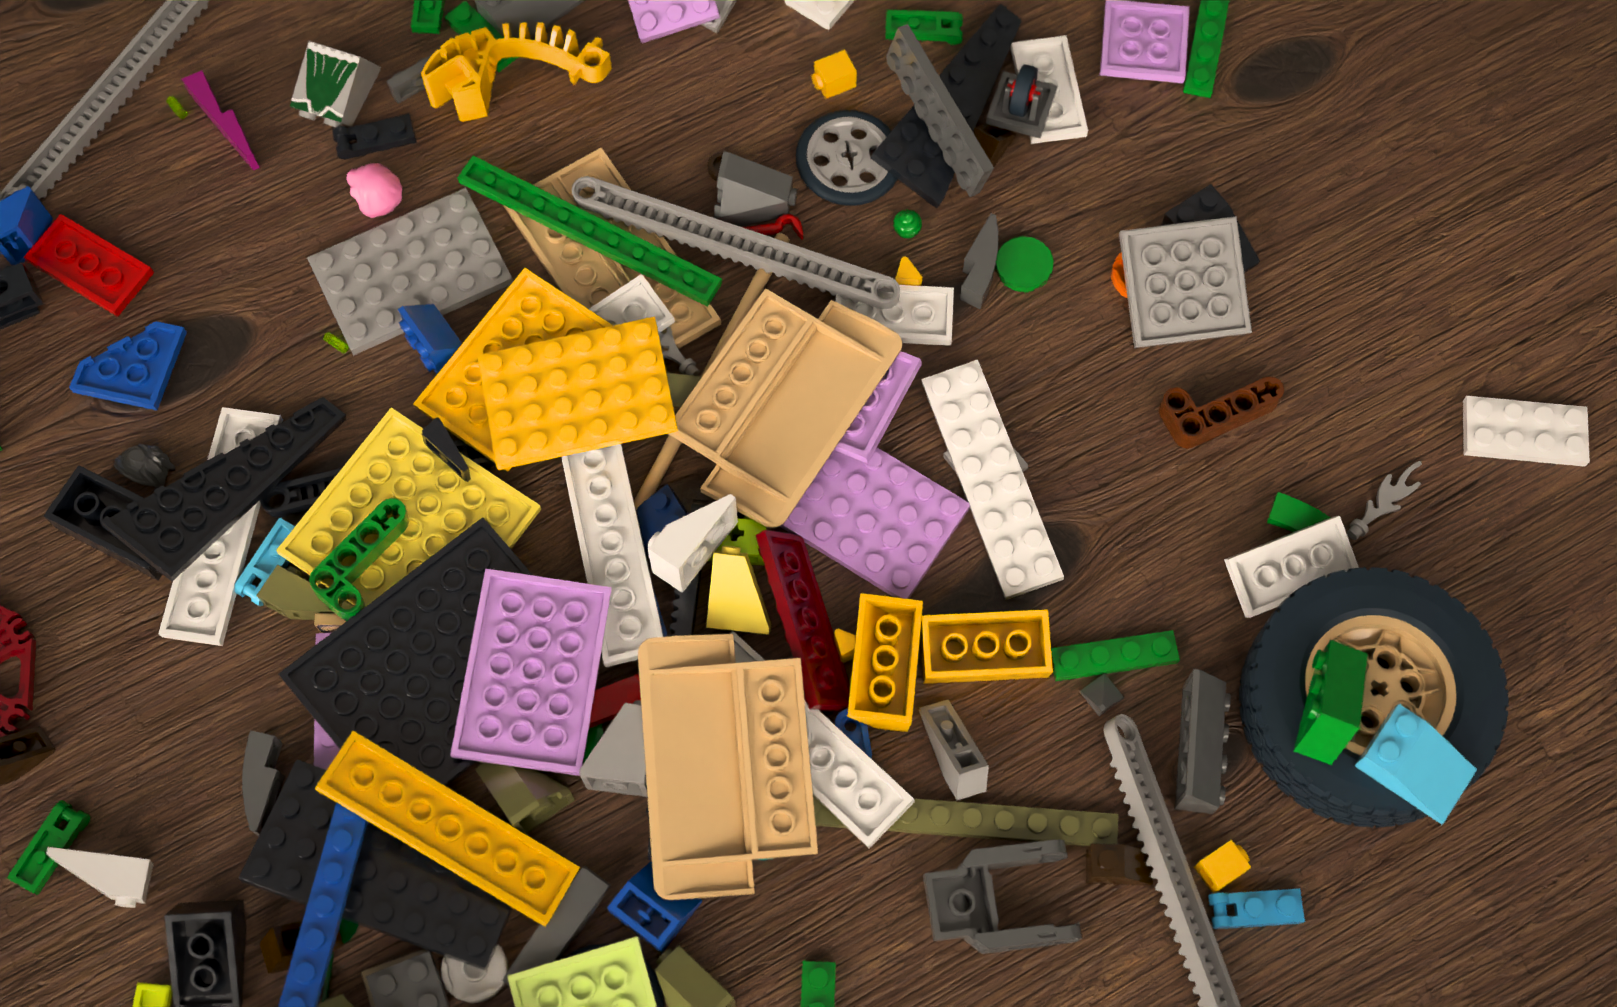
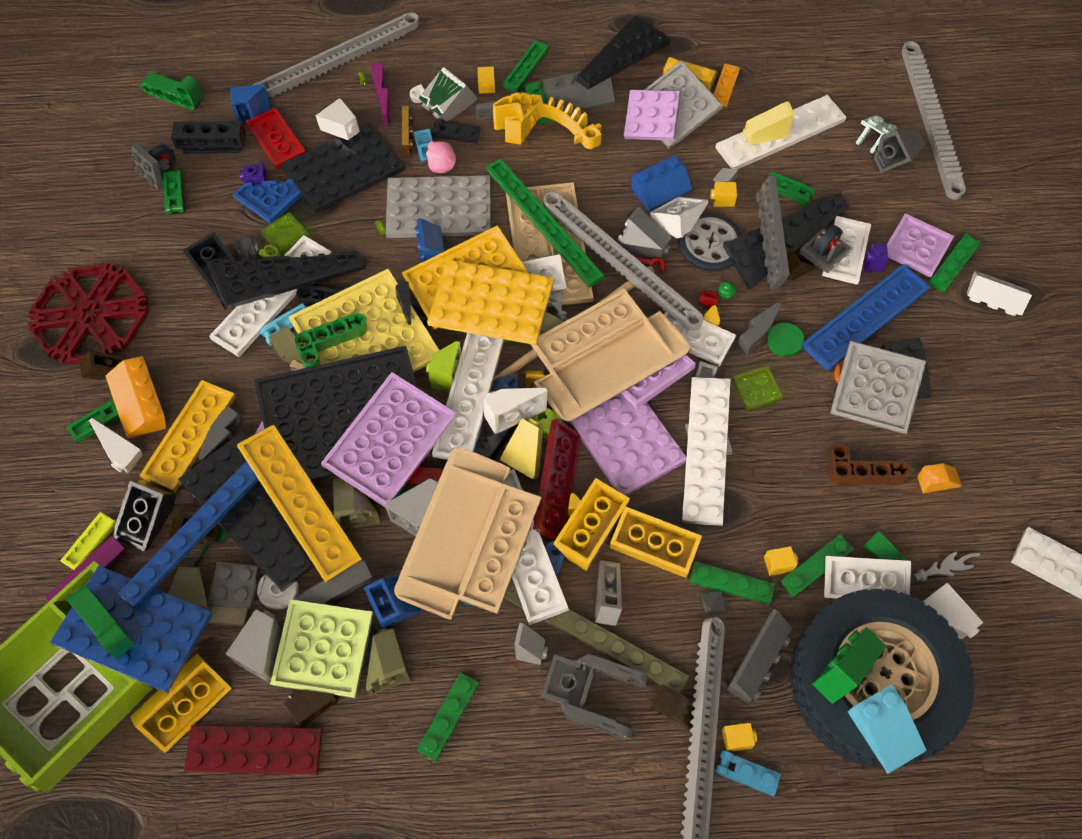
camera: 25 degrees right, 5 degrees down
(86, 340) = (254, 174): none -> dark purple brick
(95, 783) = (135, 398): none -> light orange slope
(180, 195) = (338, 120): none -> white slope
(182, 452) = (269, 251): none -> lime plate
(188, 416) = (284, 233): none -> clear neon green plate
(210, 804) = (185, 437): none -> yellow plate
(224, 270) = (342, 168): none -> black plate
(280, 97) = (415, 93): none -> white tile
(298, 167) = (407, 131): none -> plate
(333, 176) = (422, 140): none -> dark azure slope
(381, 32) = (486, 80): none -> yellow brick
(554, 525) = (444, 366): none -> lime slope
(692, 478) = (532, 376): none -> yellow slope
(734, 95) = (661, 183): none -> blue slope
(785, 136) = (679, 215): none -> white slope
(822, 43) = (726, 175): none -> light grey slope
(885, 877) = (529, 645): none -> light grey slope
(888, 247) = (708, 298): none -> red slope
(935, 360) = (706, 370): none -> light grey slope
(1019, 355) = (757, 388): none -> clear neon green plate
(1096, 85) = (876, 258): none -> dark purple brick
(1120, 182) = (865, 316): none -> blue plate
(1166, 594) = (780, 561): none -> yellow brick
(1214, 580) = (815, 566): none -> green plate
(1285, 69) = (998, 293): none -> white slope
(1322, 379) = (938, 478): none -> light orange slope
(1422, 557) = (955, 611): none -> white slope

